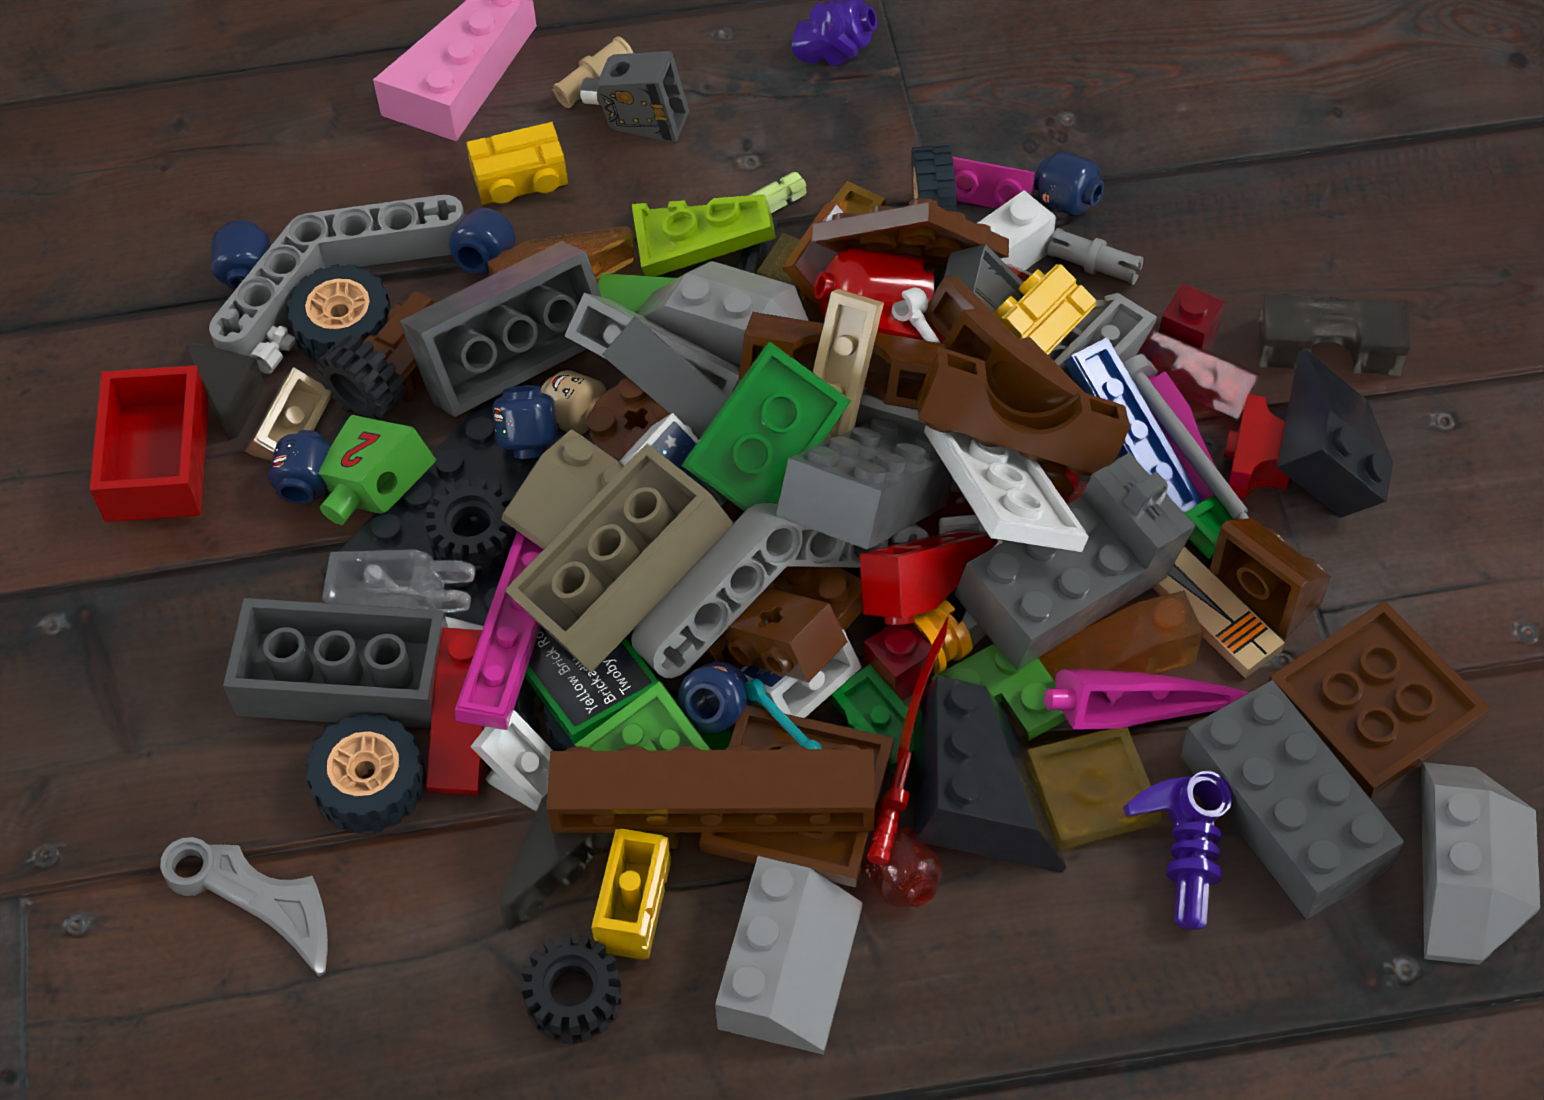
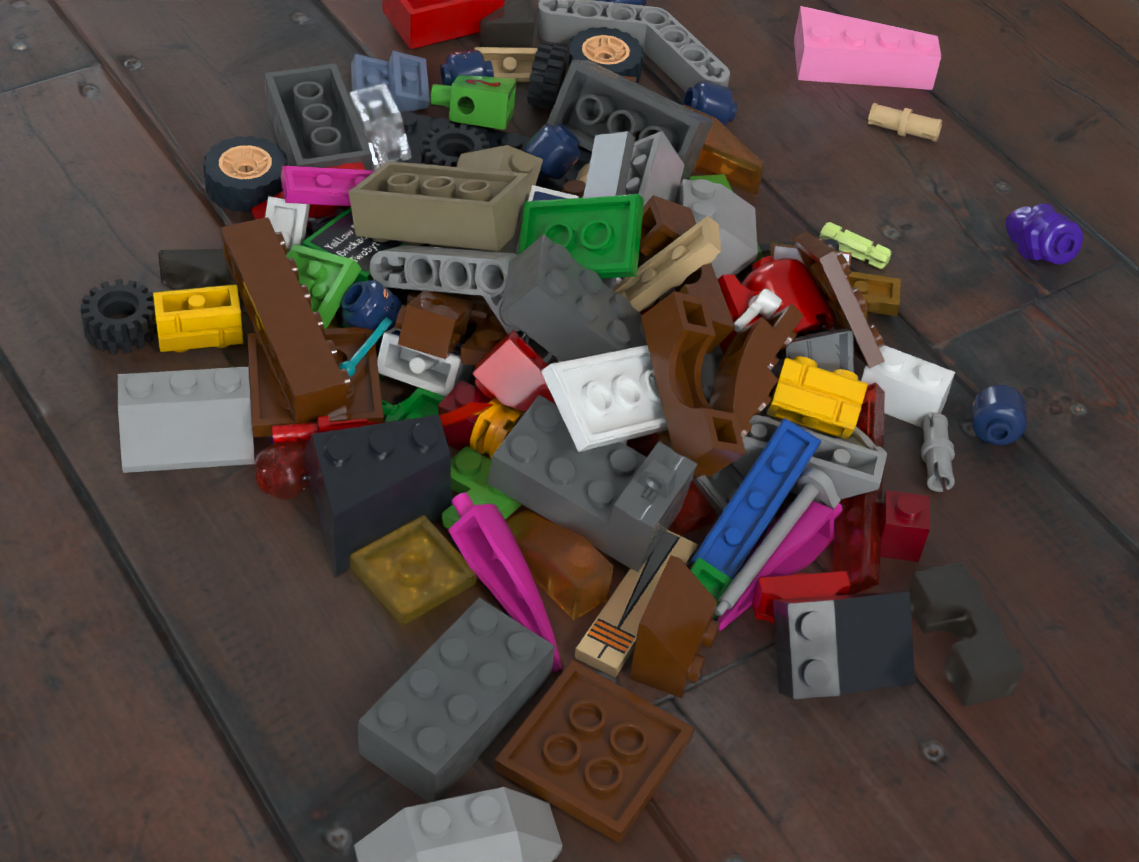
camera: 60 degrees right, 10 degrees down
(257, 556) = (403, 76): none -> sand blue slope
(268, 353) = (554, 37): white piece -> none
(285, 905) = (136, 166): light grey piece -> none
(517, 163) = (790, 105): yellow brick -> none
(640, 95) = (895, 135): dark grey torso -> none
(693, 234) = (792, 207): lime wing -> none
(934, 175) = (915, 317): black wheel -> none
(989, 183) = (961, 356): dark pink hinge -> none
(1195, 836) = (383, 645): dark purple piece -> none

